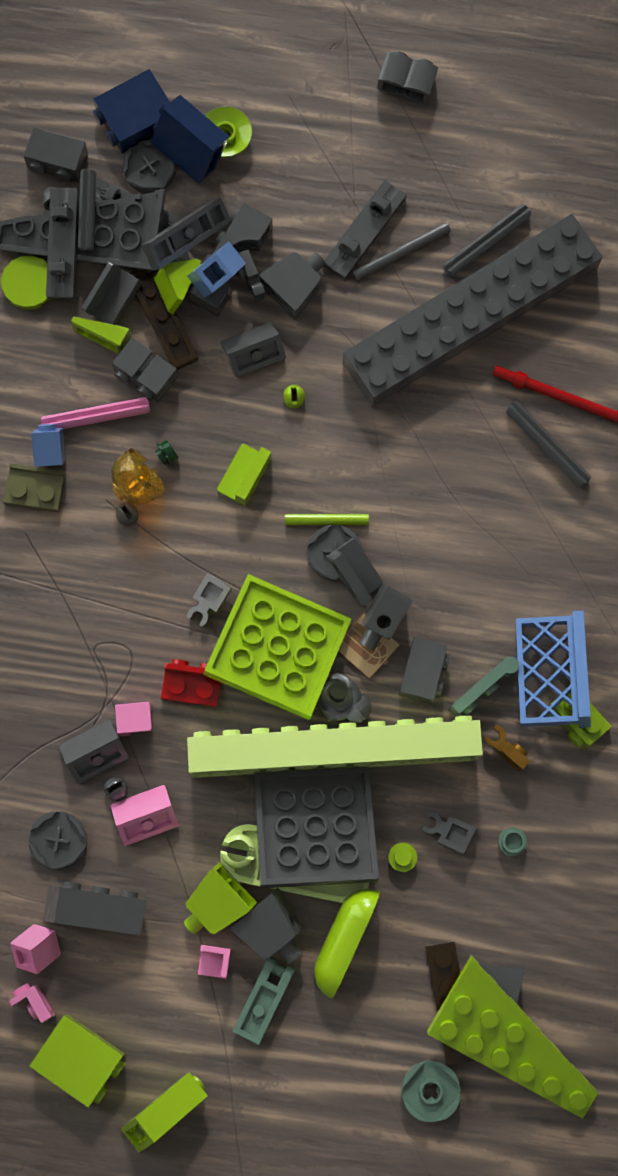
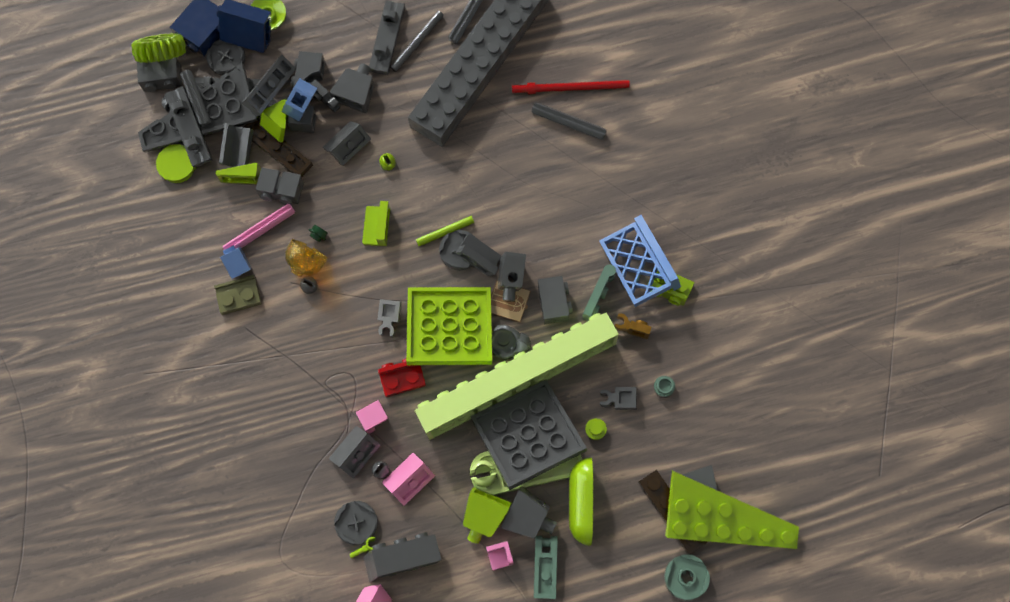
camera: 15 degrees left, 5 degrees down
(54, 877) = (365, 548): none -> lime hand
(68, 121) = (158, 47): none -> lime gear

